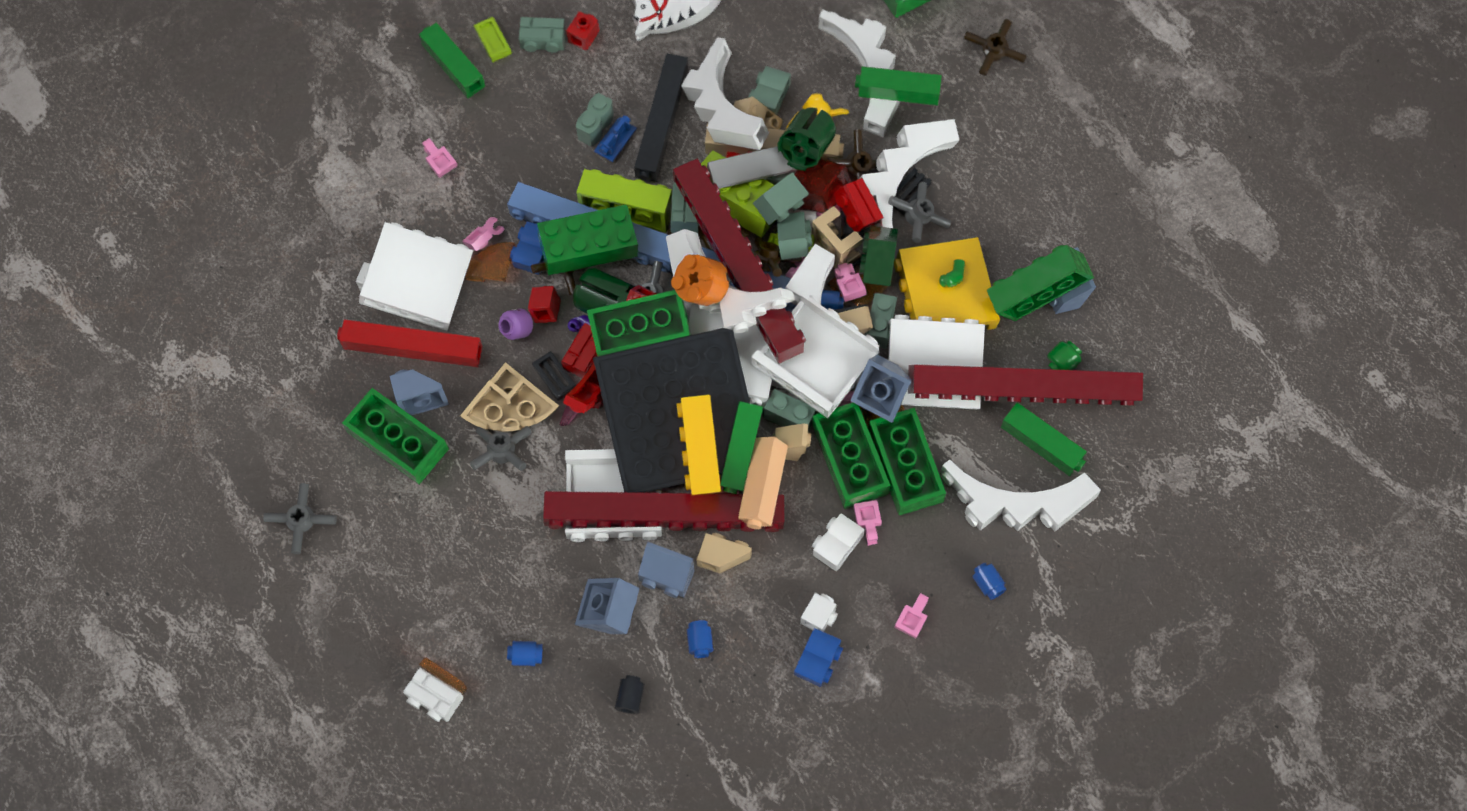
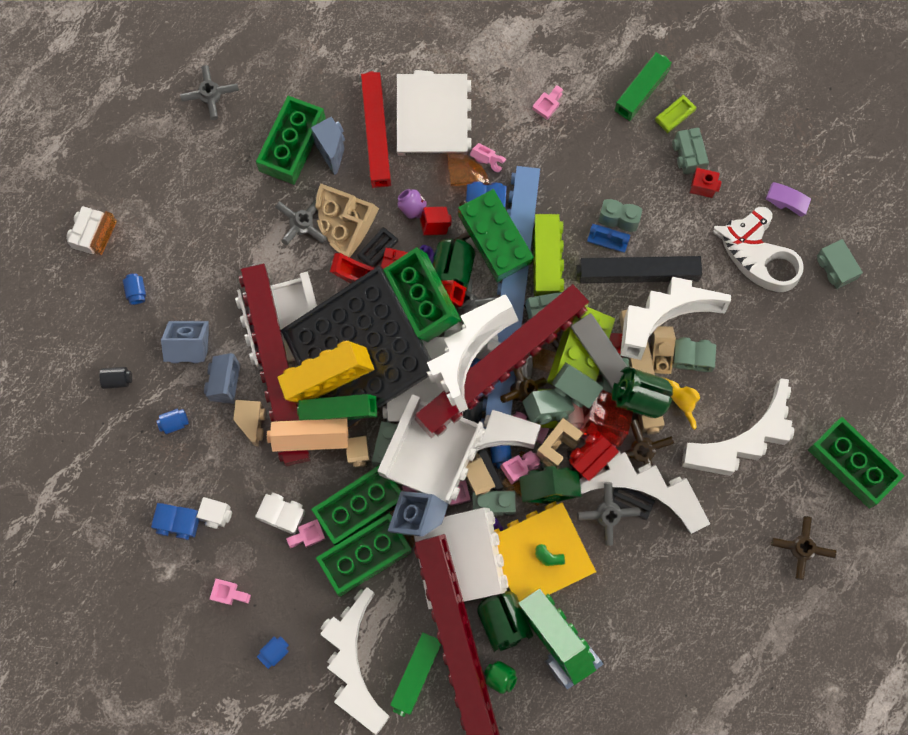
camera: 75 degrees right, 5 degrees up
(700, 280) = (461, 329): orange brick -> none
(898, 85) = (726, 464): green brick -> none
(1010, 337) = (503, 621): none -> dark green cylinder

